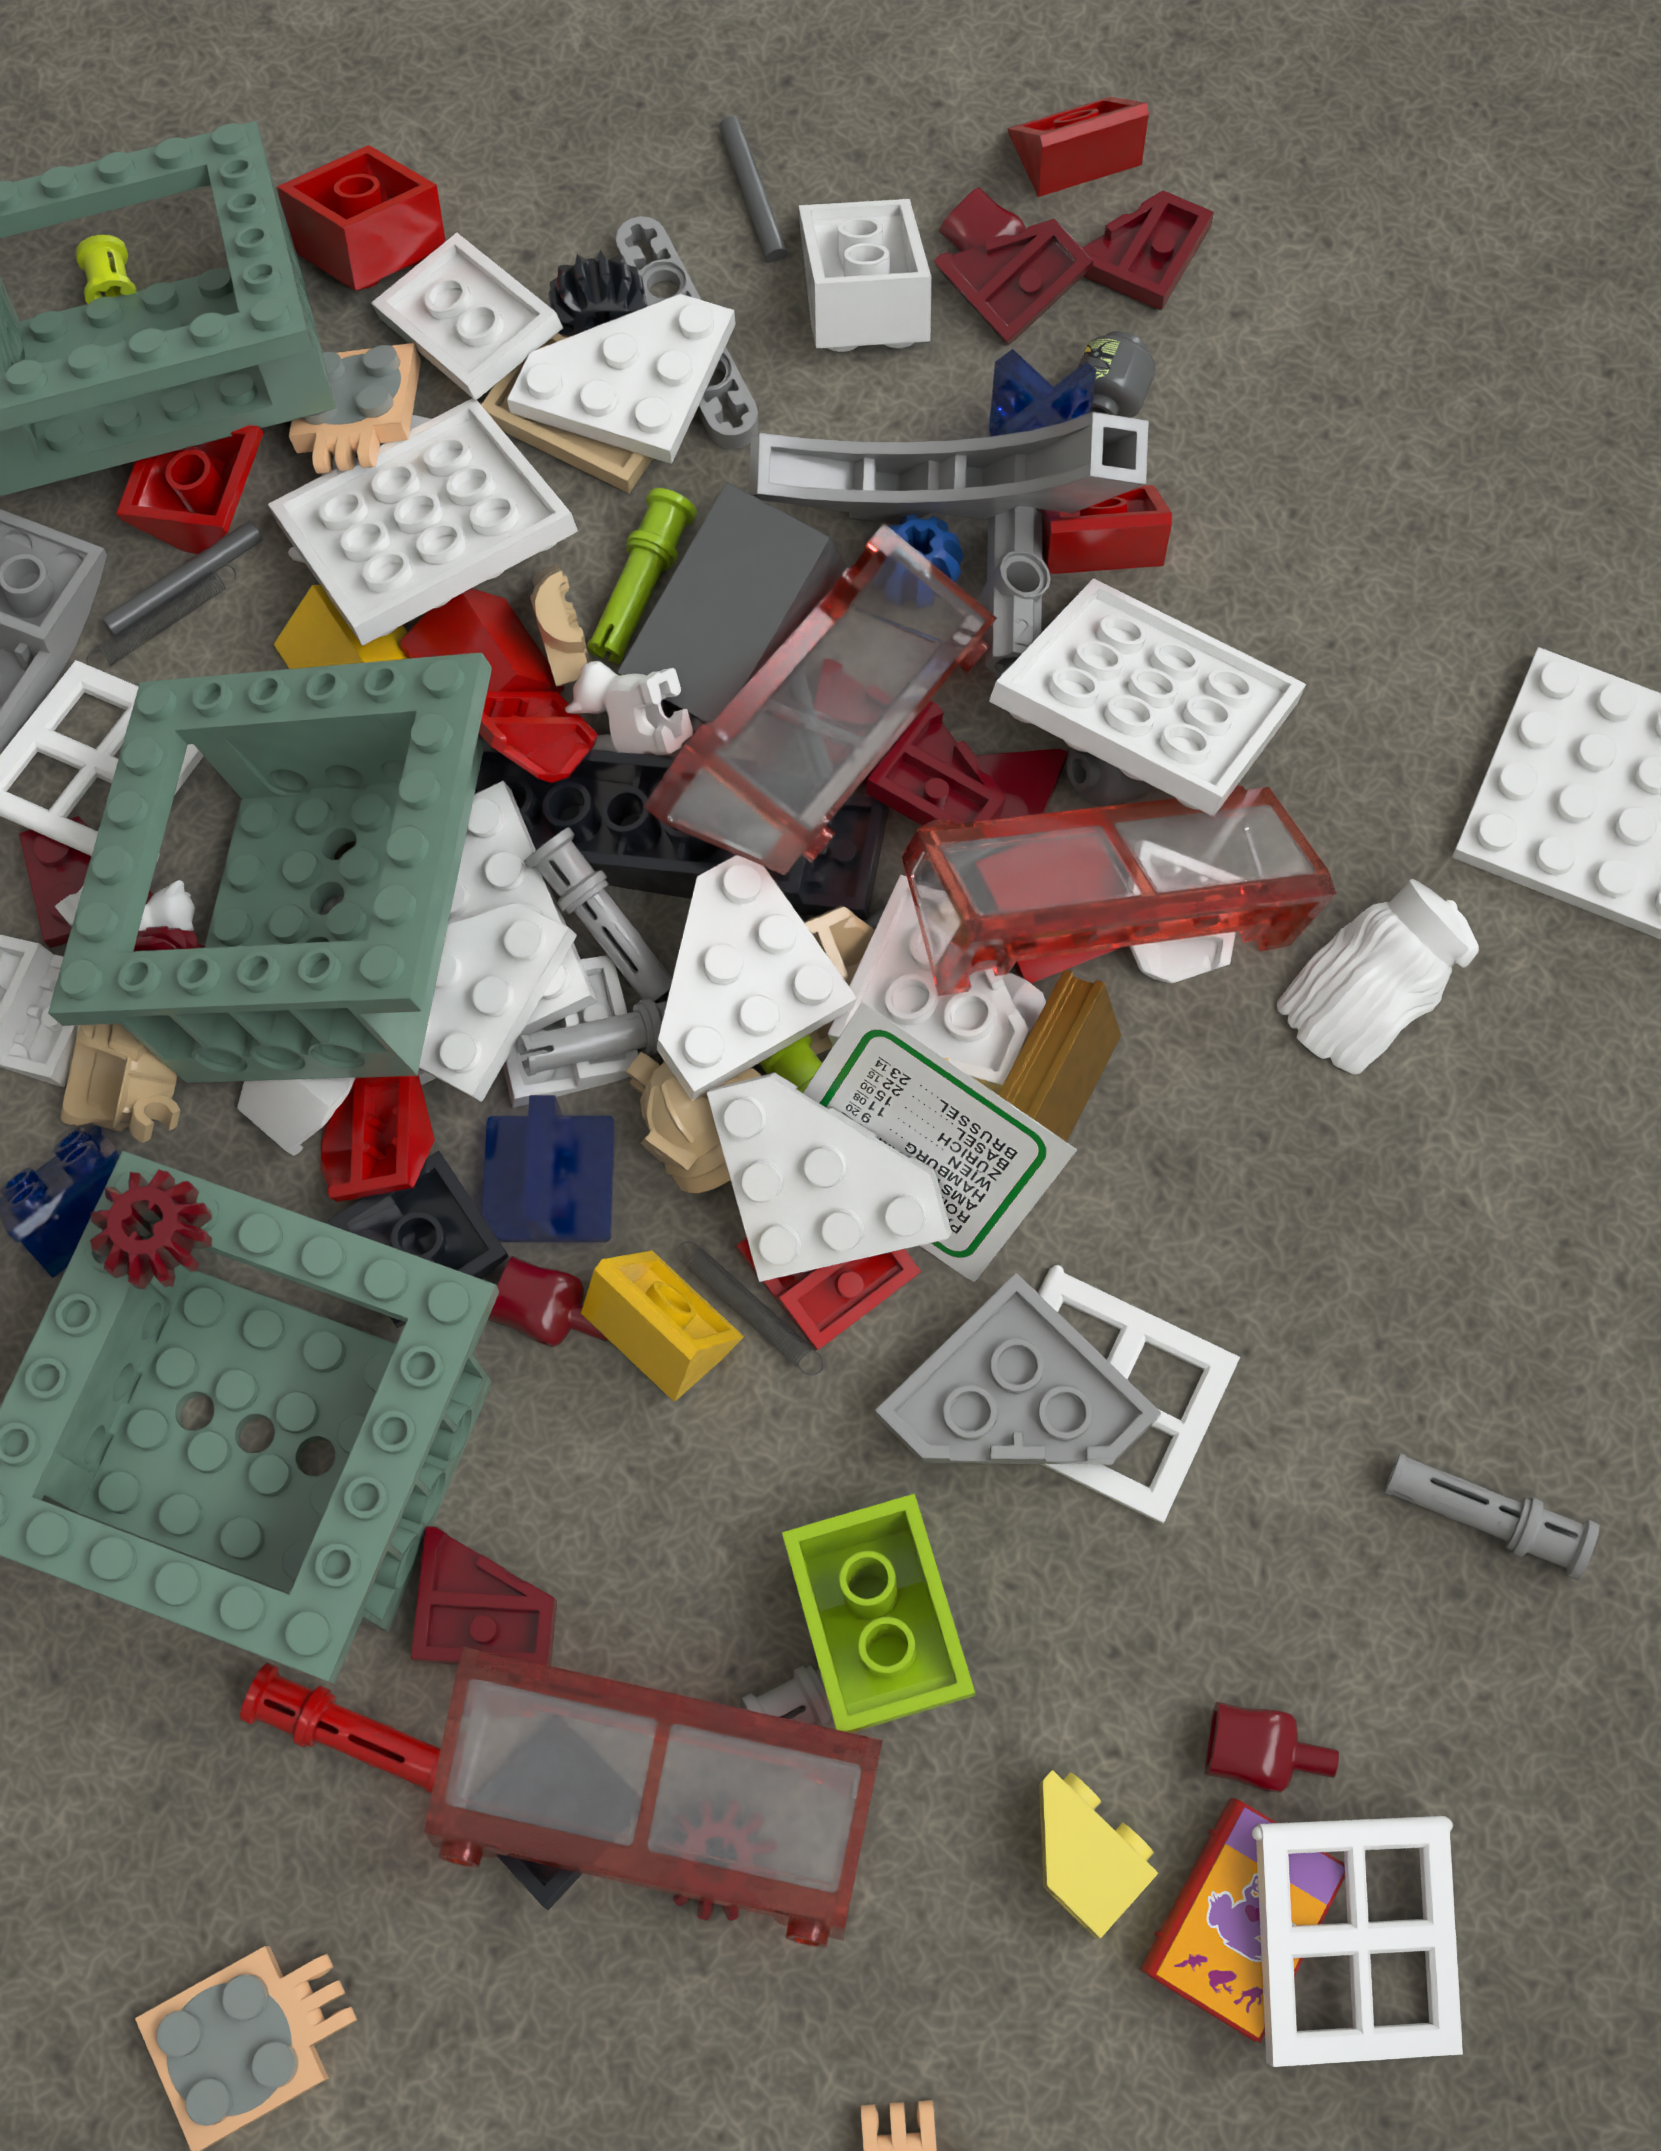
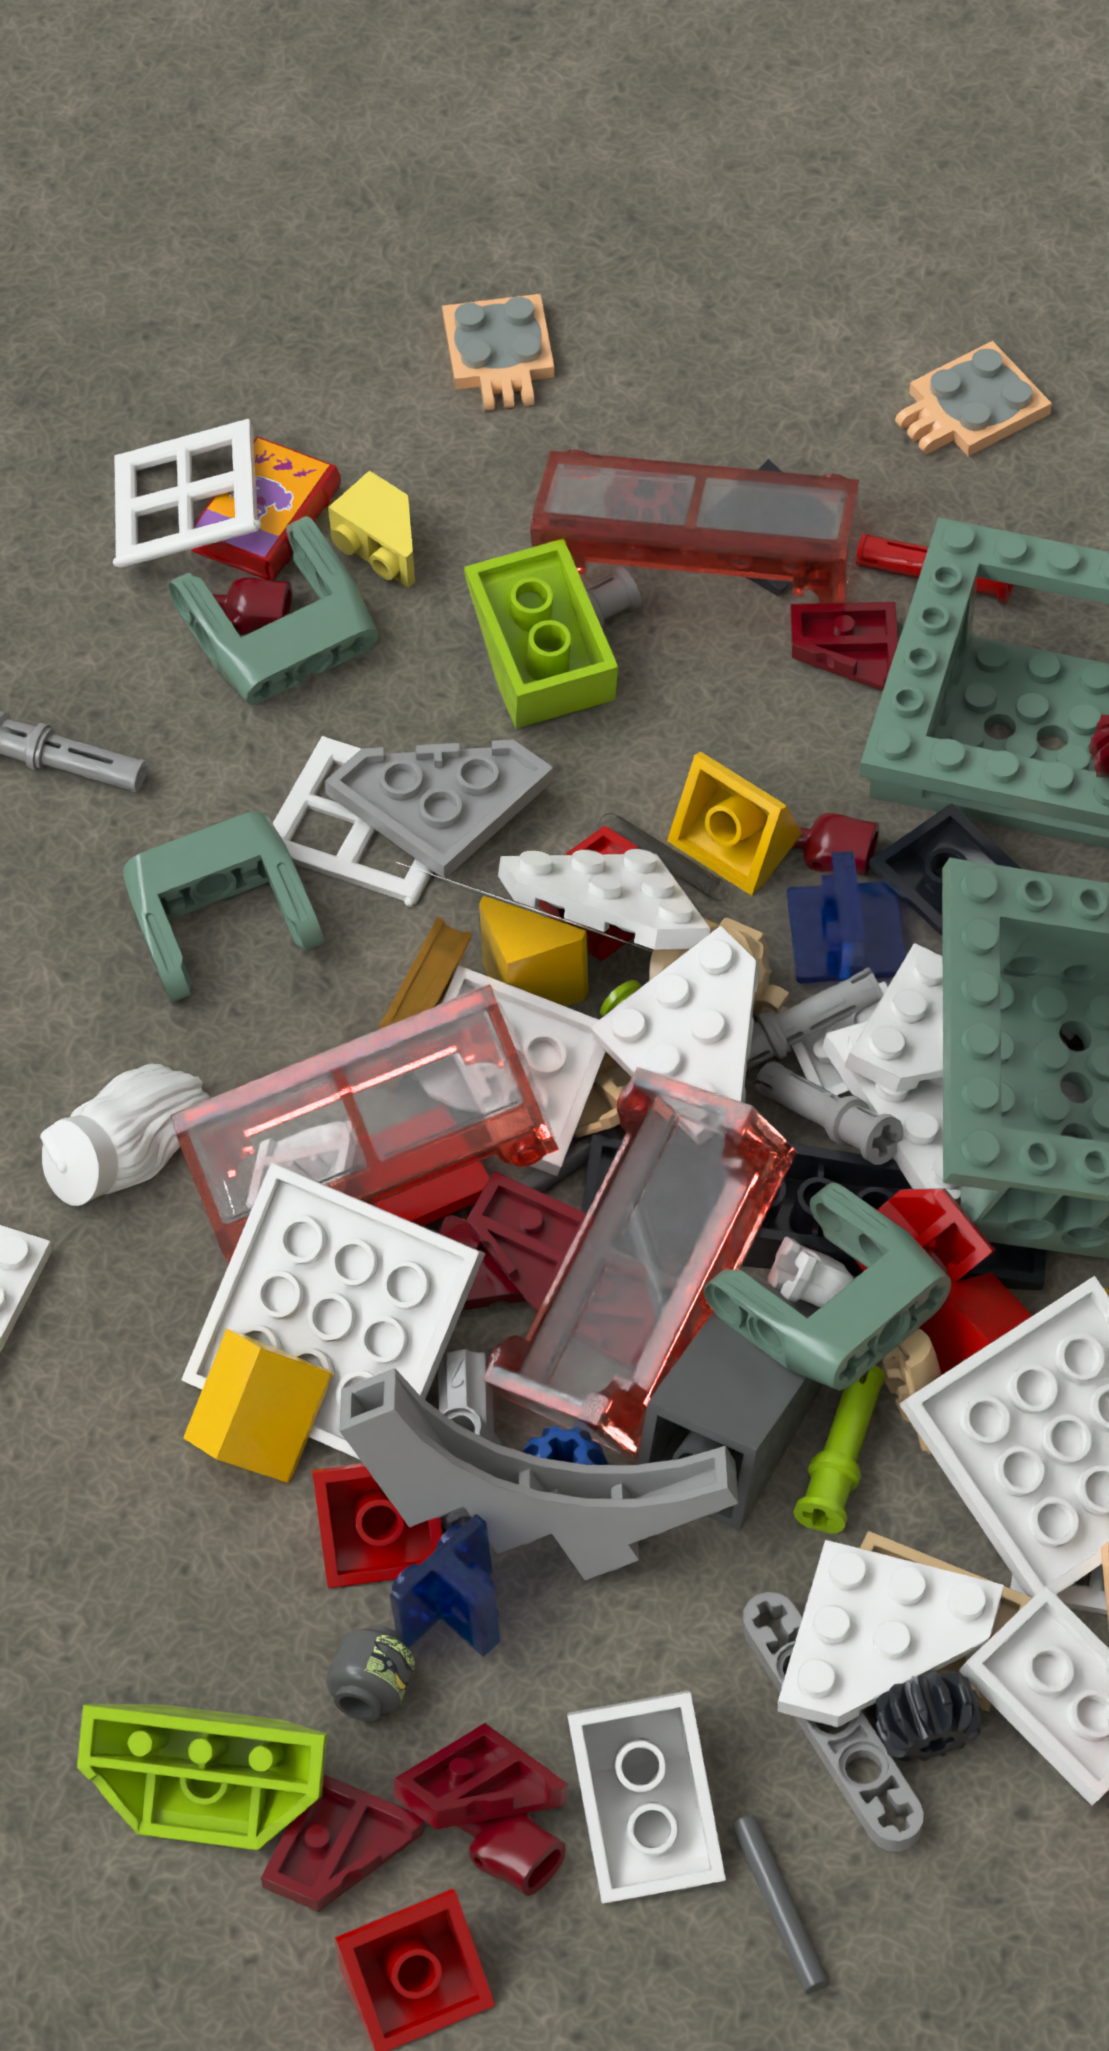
camera: 175 degrees right, 15 degrees down
(598, 615) = (862, 1320): none -> sand green connector
(1197, 1657) = (294, 645): none -> sand green connector
(1232, 631) = (257, 1406): none -> yellow slope
(1265, 304) = (201, 1771): none -> lime wedge
(1302, 1308) = (205, 871): none -> sand green connector

